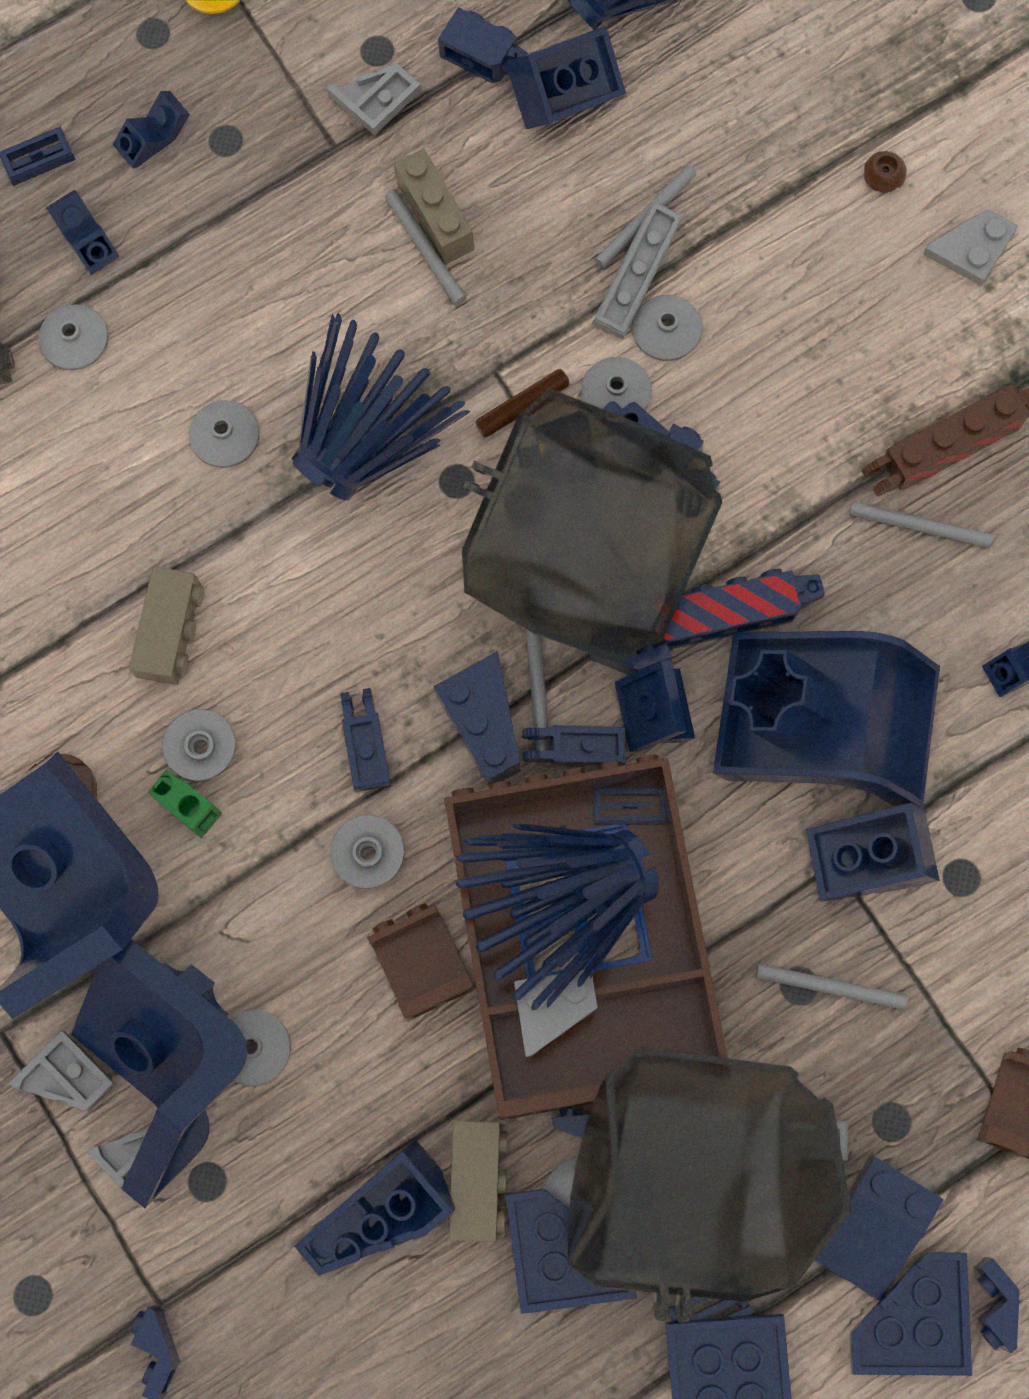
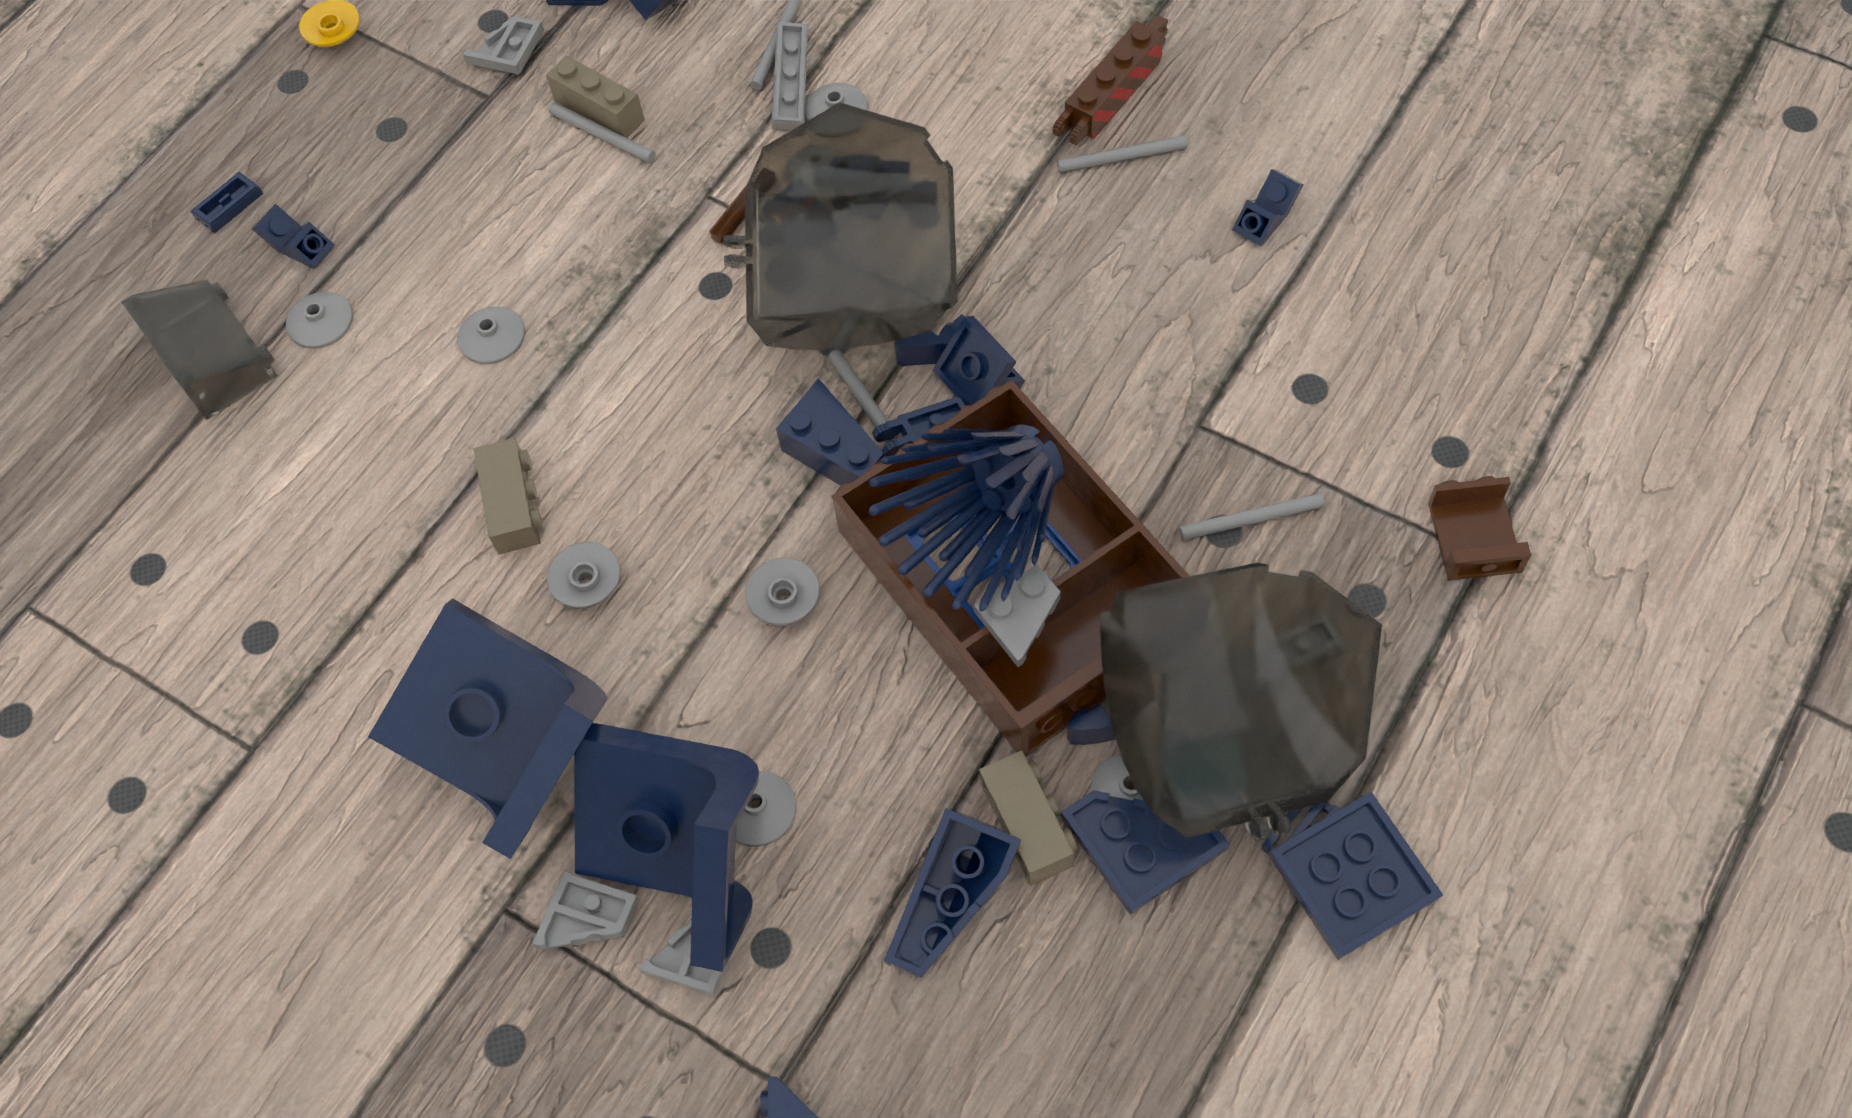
camera: 25 degrees left, 15 degrees down
(148, 135) = (330, 138): dark blue slope -> none
(185, 803) = (593, 628): green leg -> none
(353, 442) = (589, 282): dark blue plant -> none
(365, 744) = (737, 510): dark blue hinge -> none
(420, 961) = (877, 661): reddish brown panel -> none
(740, 606) = (1007, 269): dark blue hinge -> none
(829, 712) = (1122, 297): dark blue piece -> none
(873, 853) = (1225, 397): dark blue slope -> none
(881, 1230) = (1412, 684): dark blue slope -> none
(918, 1323) = (1492, 746): dark blue plate -> none
(1001, 1318) = (1562, 709): dark blue slope -> none

